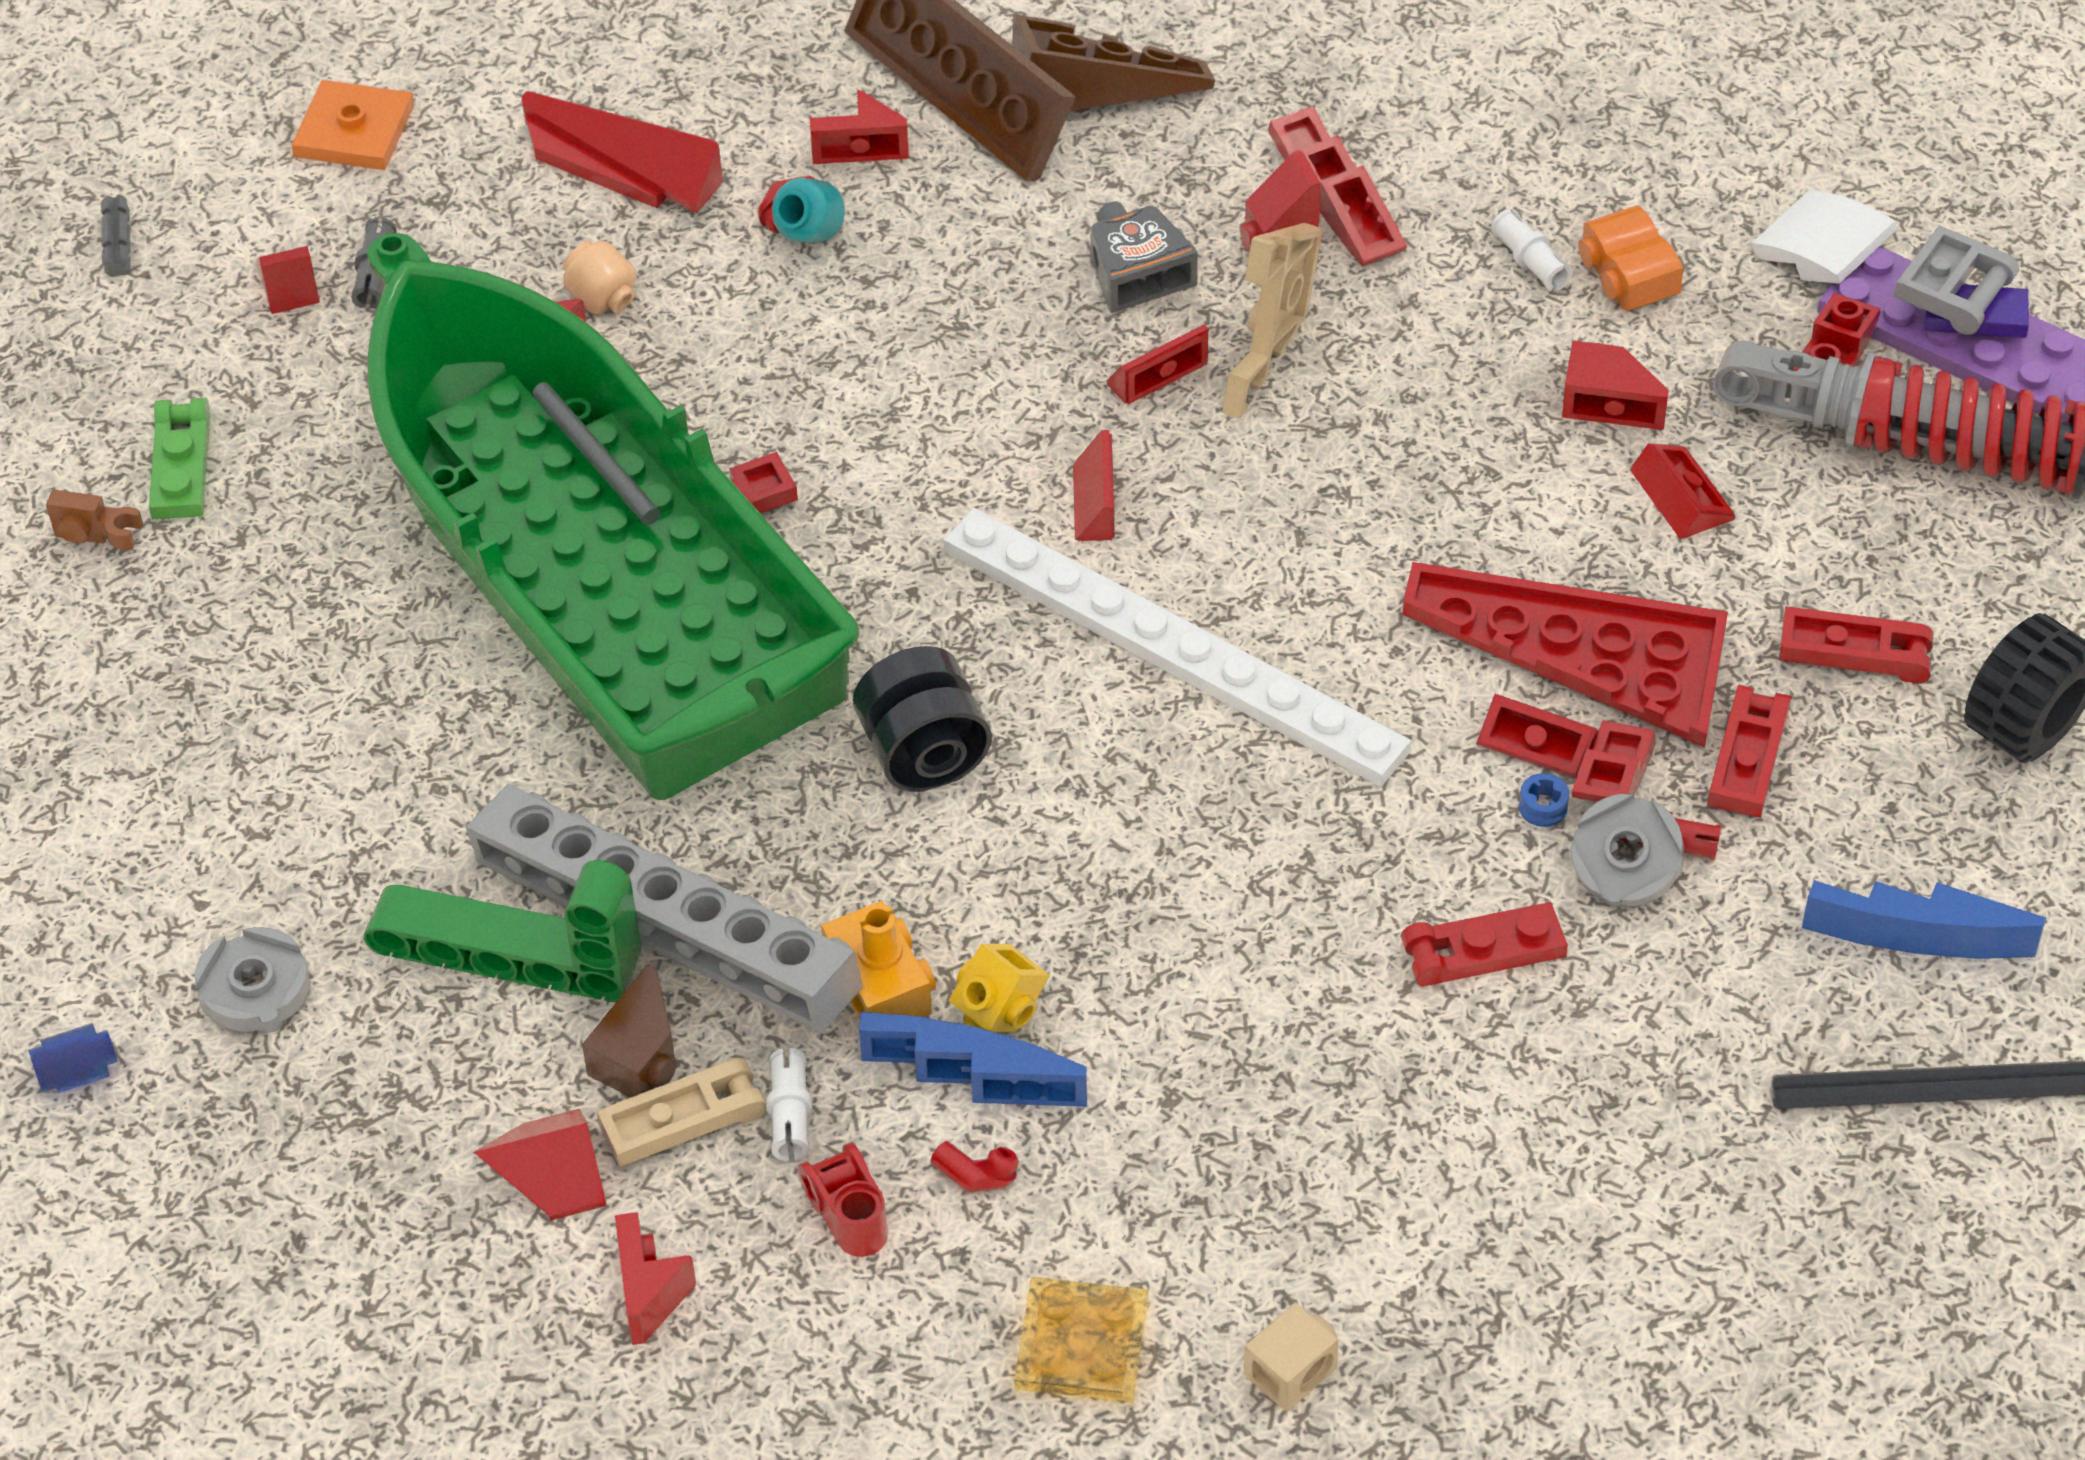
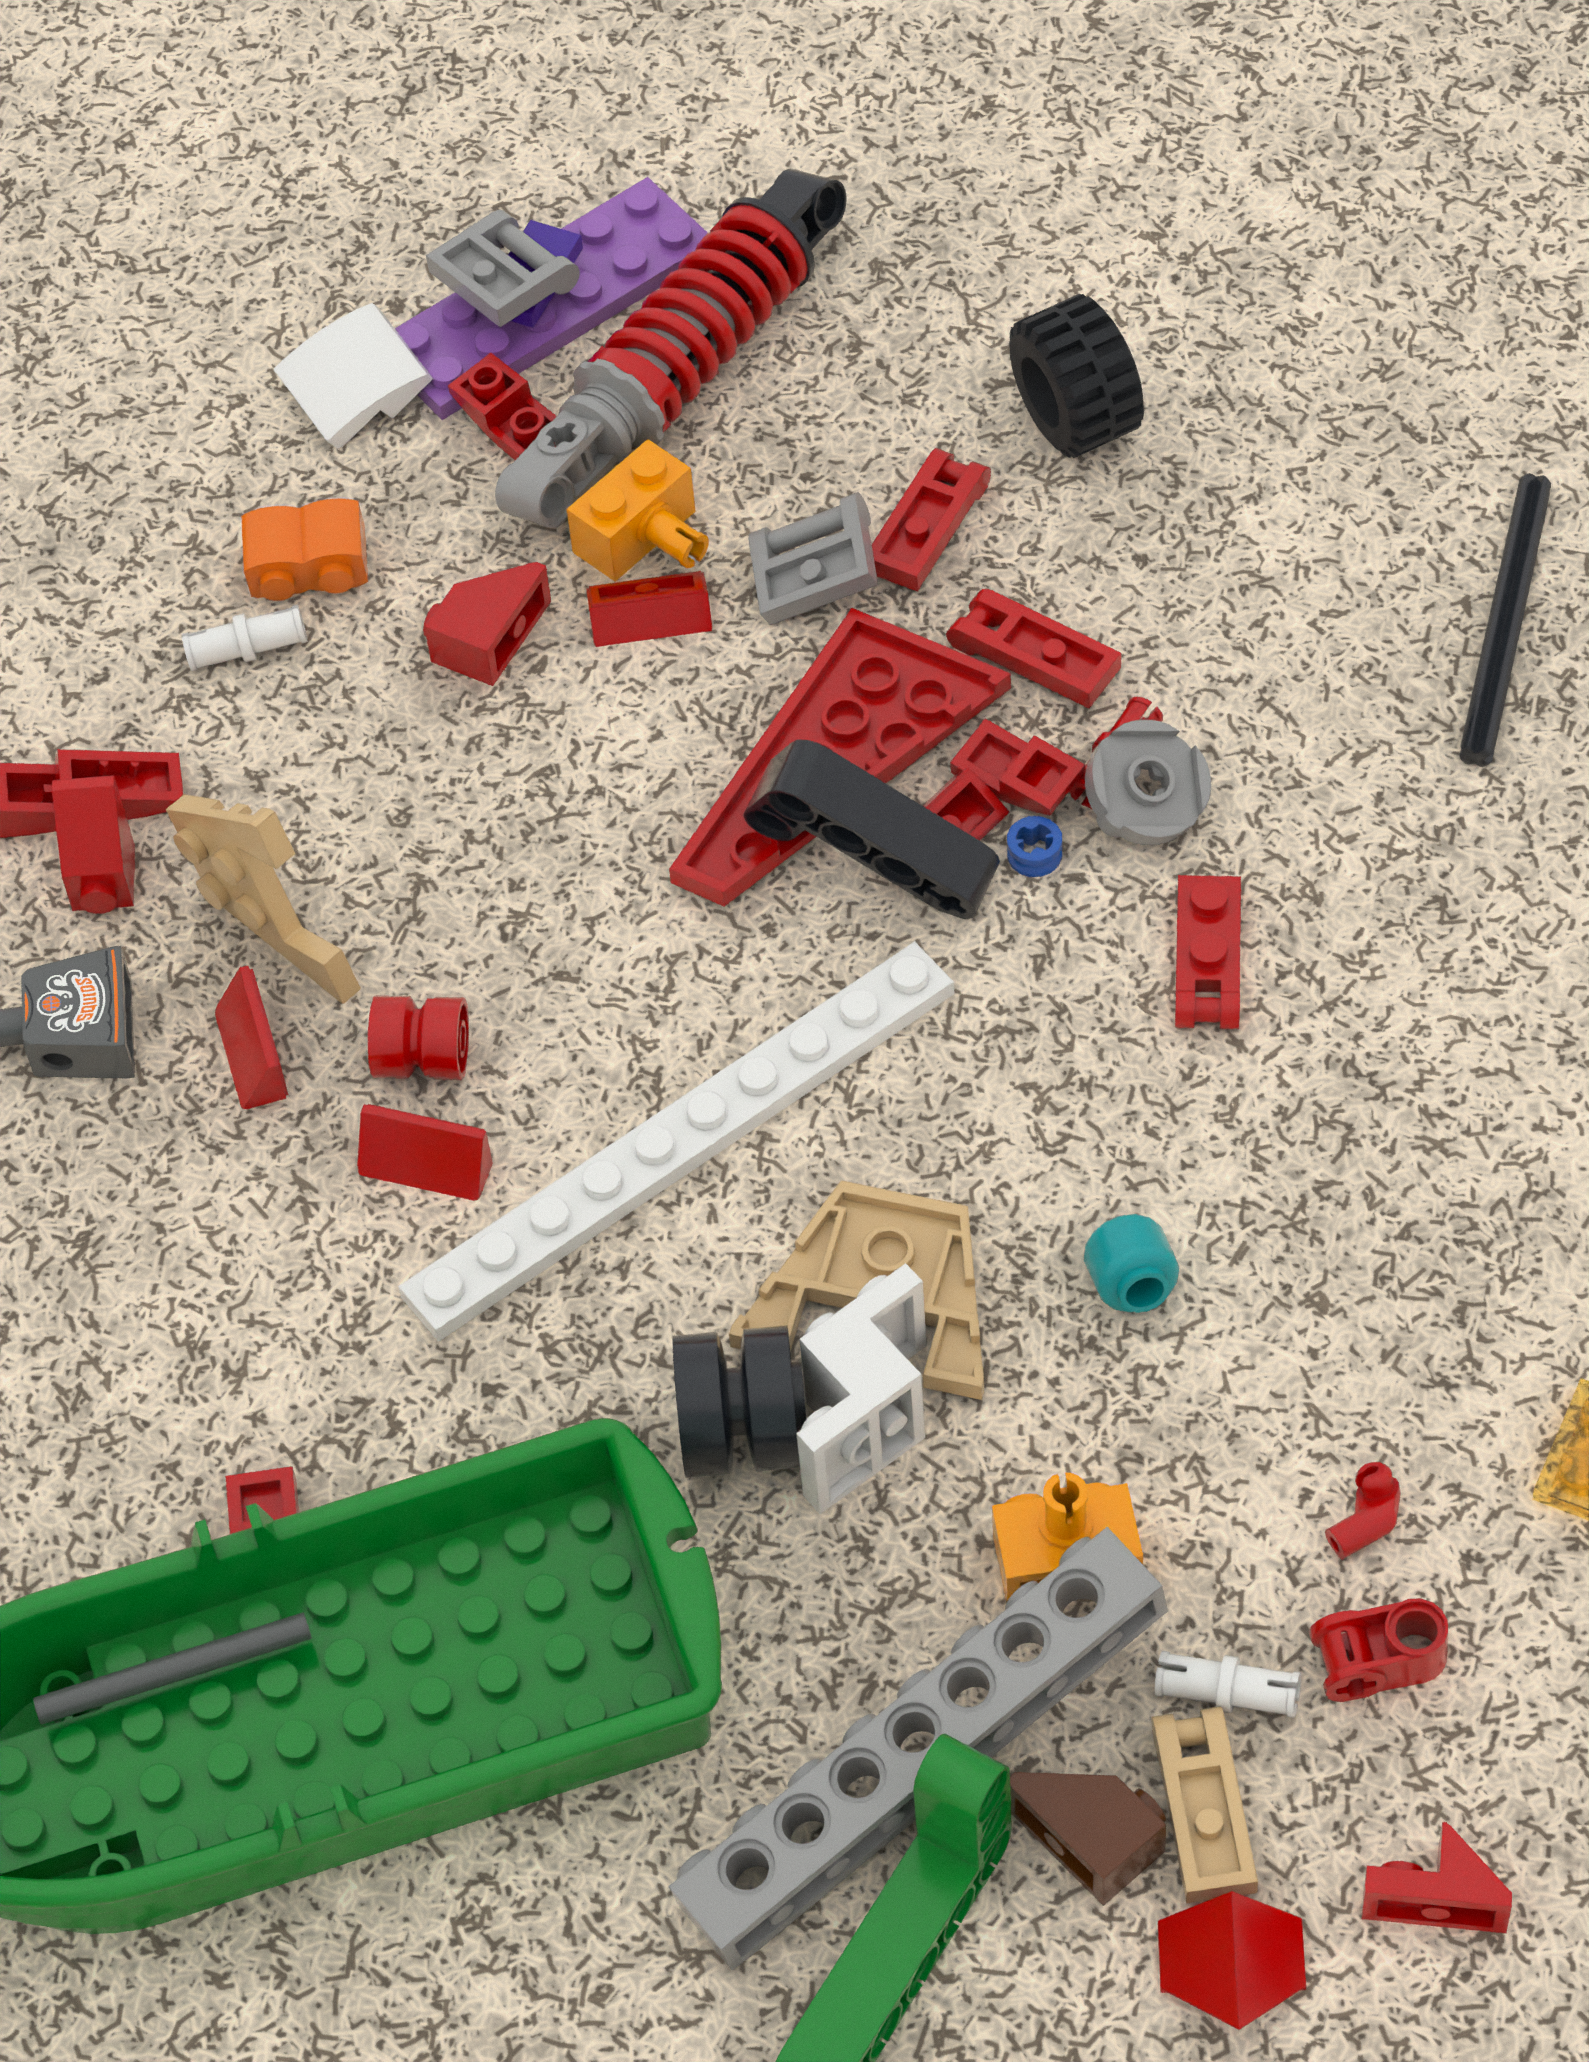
camera: 70 degrees left, 5 degrees up
(959, 793) = (862, 1387): none -> white bracket
(994, 1064) = (1235, 1462): blue slope -> none
(998, 988) = (1147, 1420): yellow brick -> none
(1102, 799) = (872, 1234): none -> tan wing
(1148, 952) = (1131, 1263): none -> teal head
(1191, 452) = (412, 1037): none -> red wheel
(1487, 672) = (872, 824): none -> black beam
(1758, 584) = (816, 571): none -> light grey plate
(1760, 446) = (635, 510): none -> light orange brick
(1945, 925) = (1312, 565): blue slope -> none

